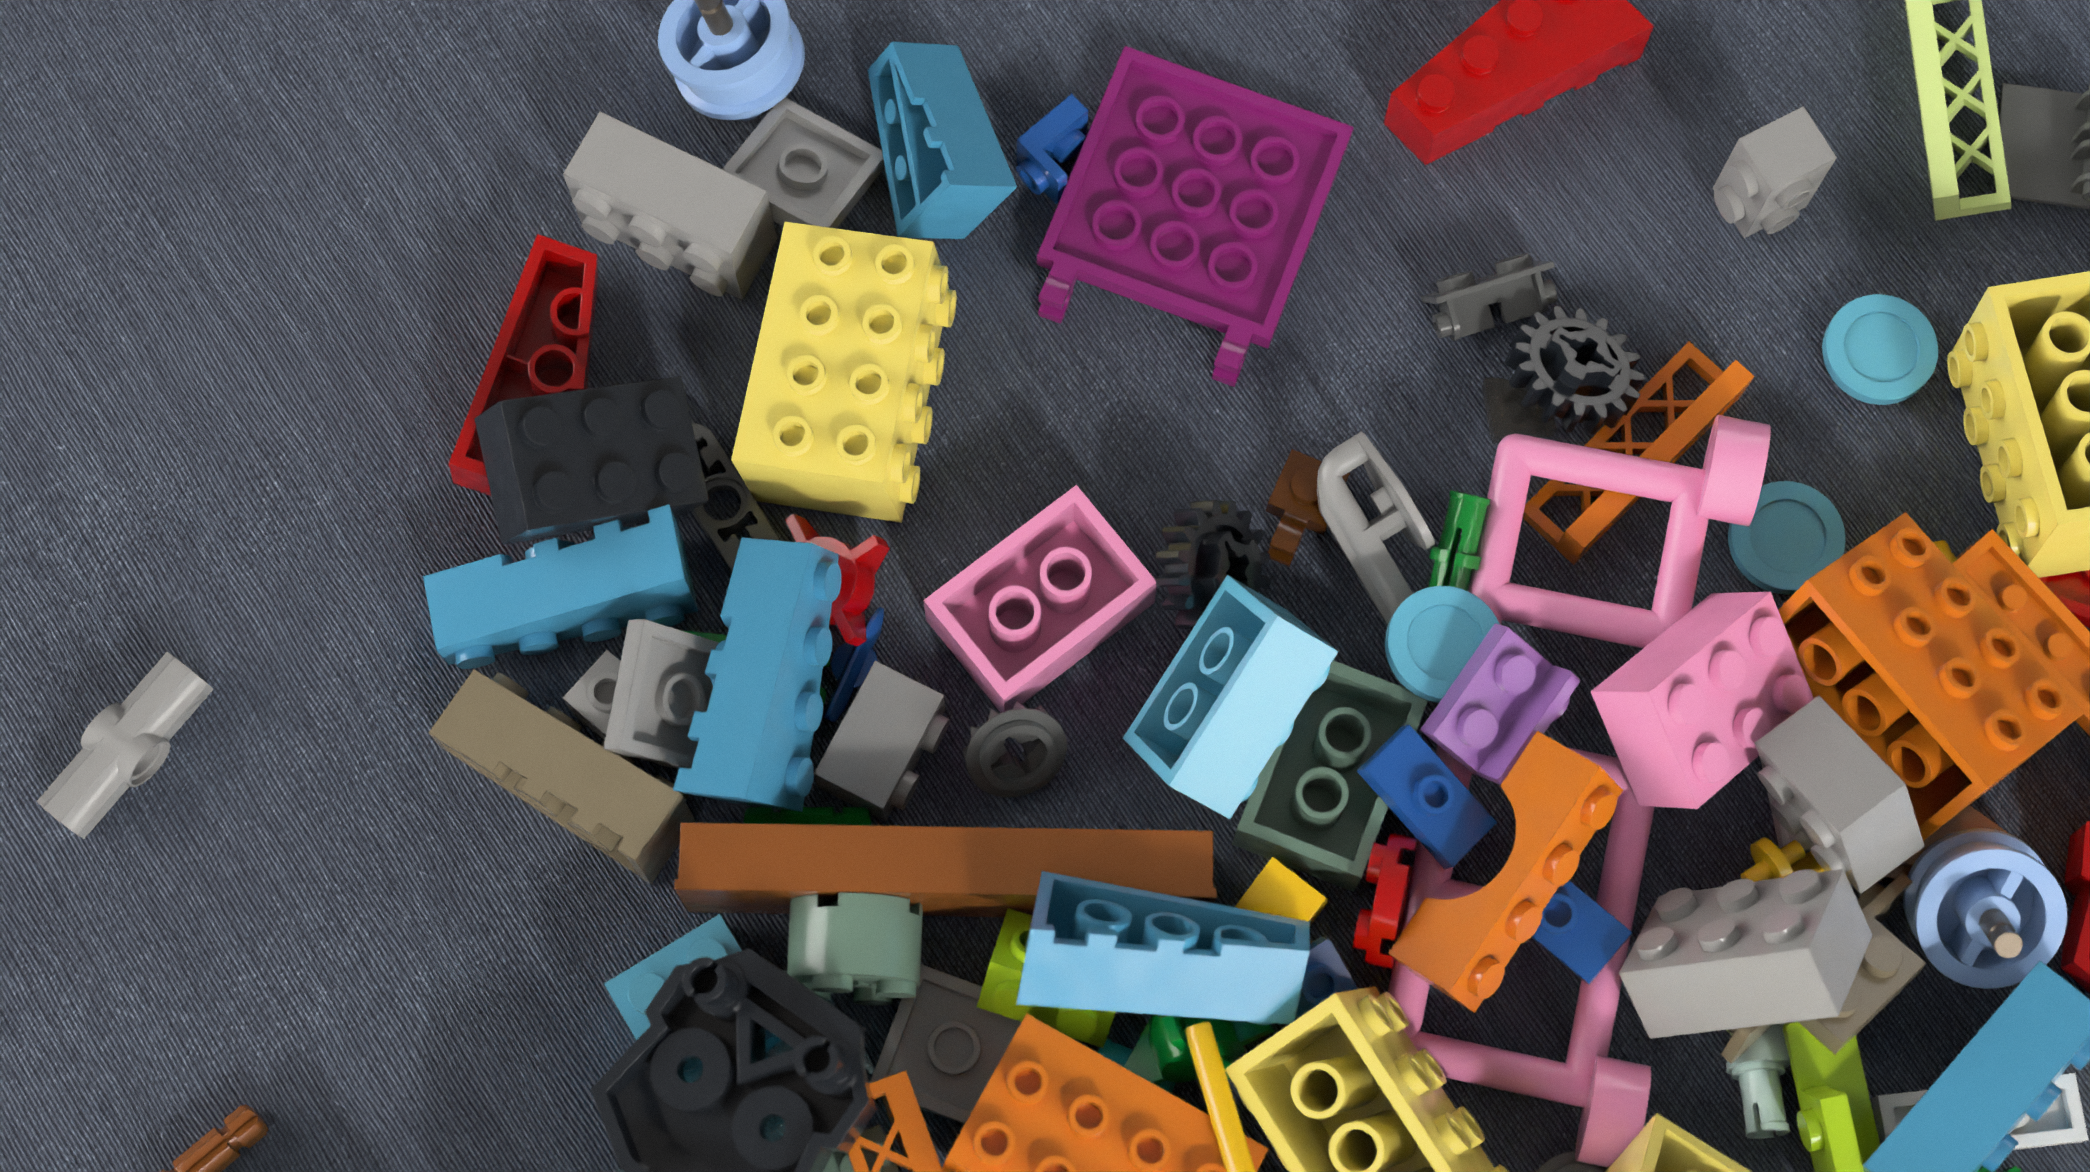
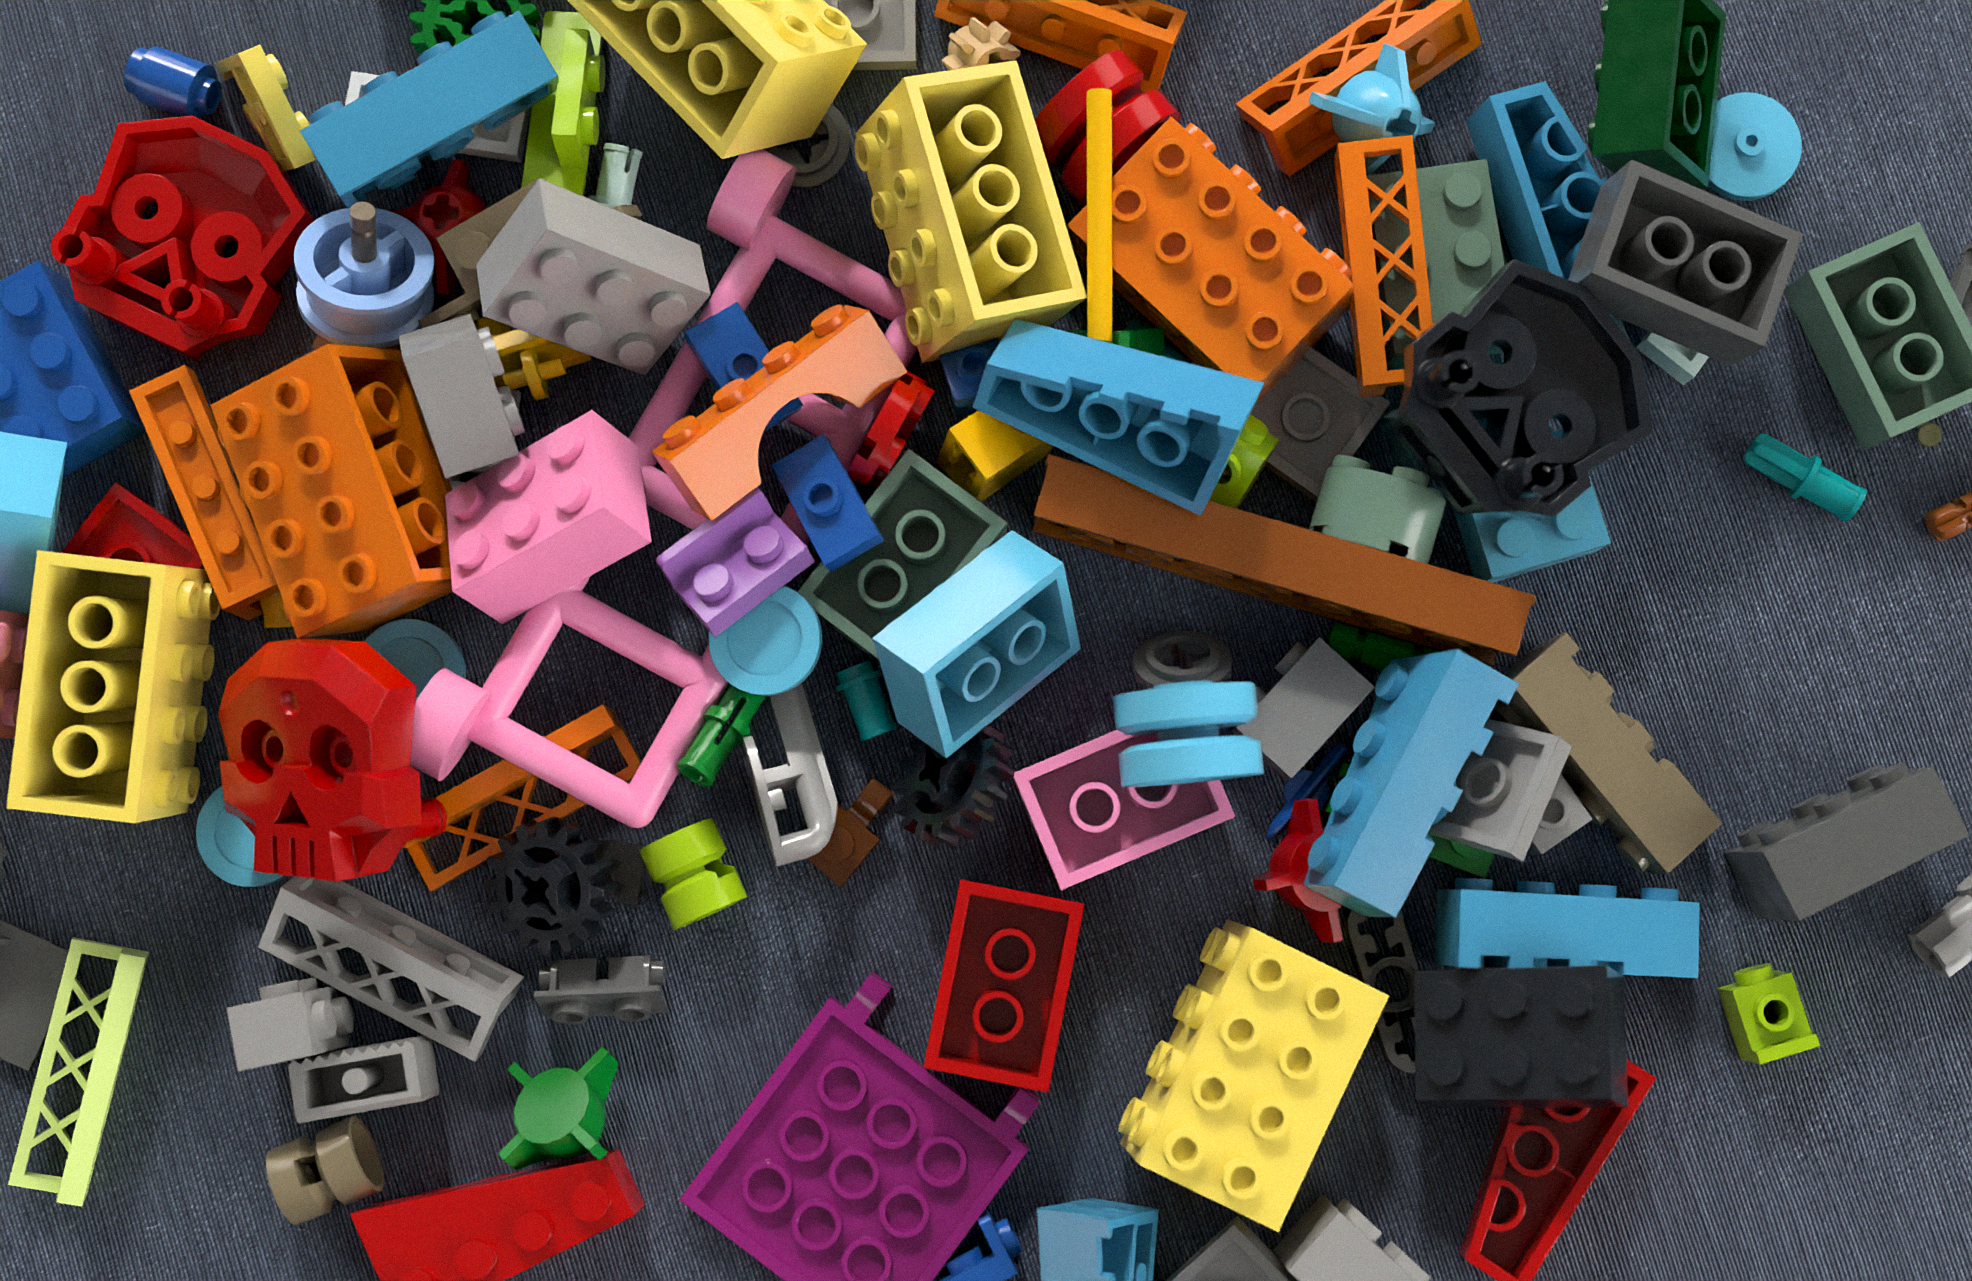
camera: 160 degrees left, 10 degrees up
(299, 747) = (1844, 841): none -> dark grey brick
(331, 548) = (1744, 1008): none -> lime brick
(406, 1132) = (1804, 476): none -> teal axle
(995, 641) = (1187, 733): none -> medium azure wheel
(1106, 393) = (1004, 985): none -> red brick
(1320, 620) = (866, 700): none -> teal pin
(1439, 418) = (693, 873): none -> lime wheel
(1491, 170) = (560, 1112): none -> green piece
(1681, 150) = (363, 1078): none -> light grey brick
(1697, 61) = (312, 1175): none -> dark tan wheel
(1703, 276) = (403, 946): none -> light grey fence
(1834, 401) = (323, 759): none -> red brick
(1927, 1013) = (441, 210): none -> red piece

